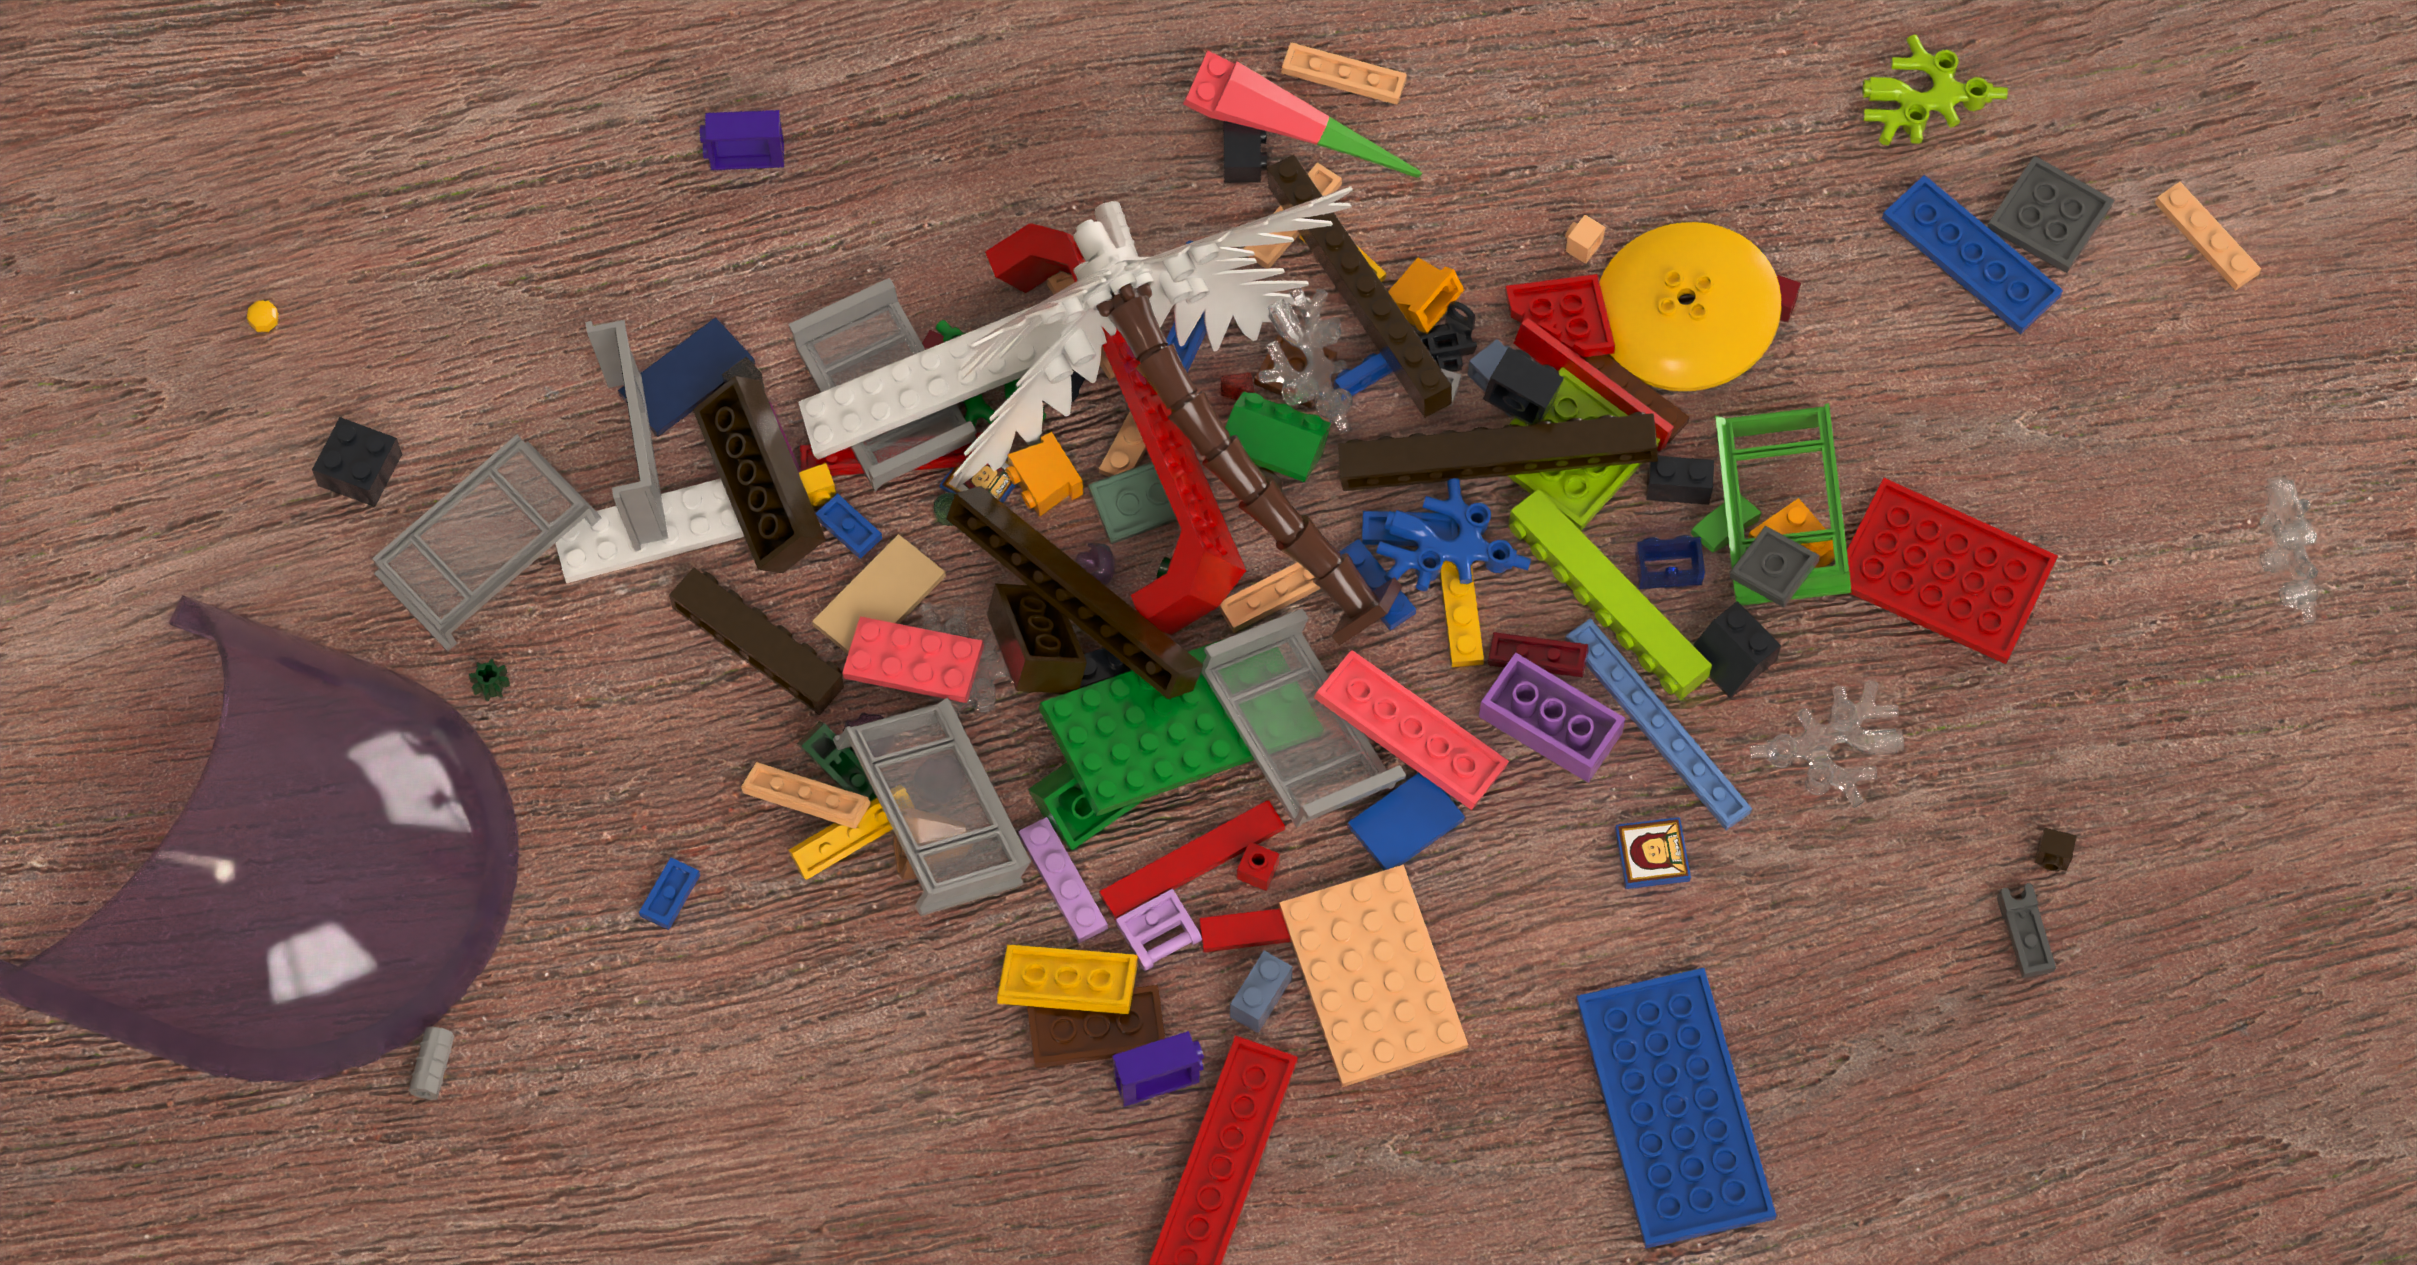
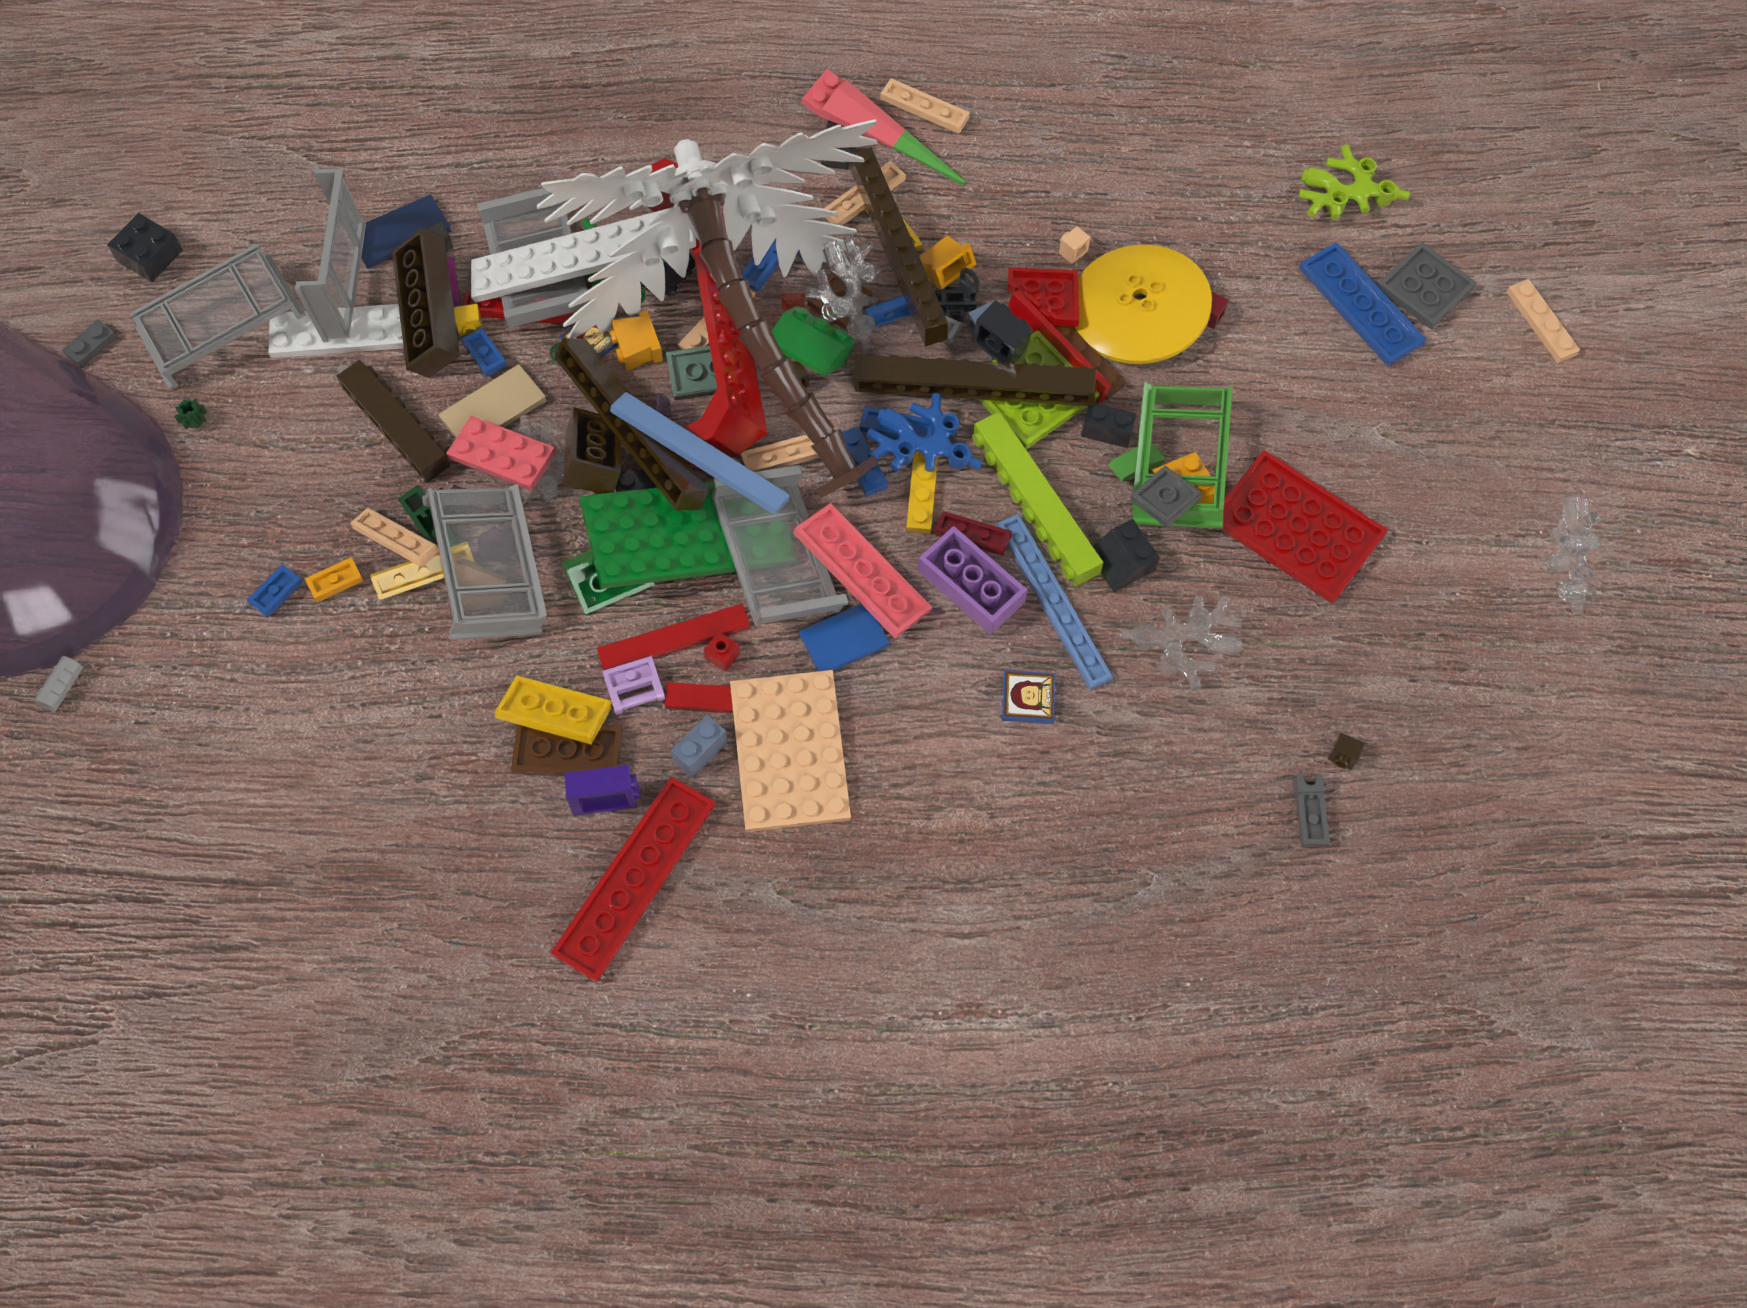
camera: 10 degrees right, 0 degrees up
(262, 316) = (114, 141): yellow tile -> none
(321, 607) = (89, 343): none -> dark grey plate
(741, 864) = (334, 579): none -> light orange plate
(743, 140) = (483, 90): dark purple window -> none
(1062, 880) = (572, 635): lavender plate -> none
(1178, 618) = (700, 453): none -> medium blue tile
(1675, 1108) = (1003, 899): blue plate -> none
(1678, 548) = (1092, 474): clear blue window -> none

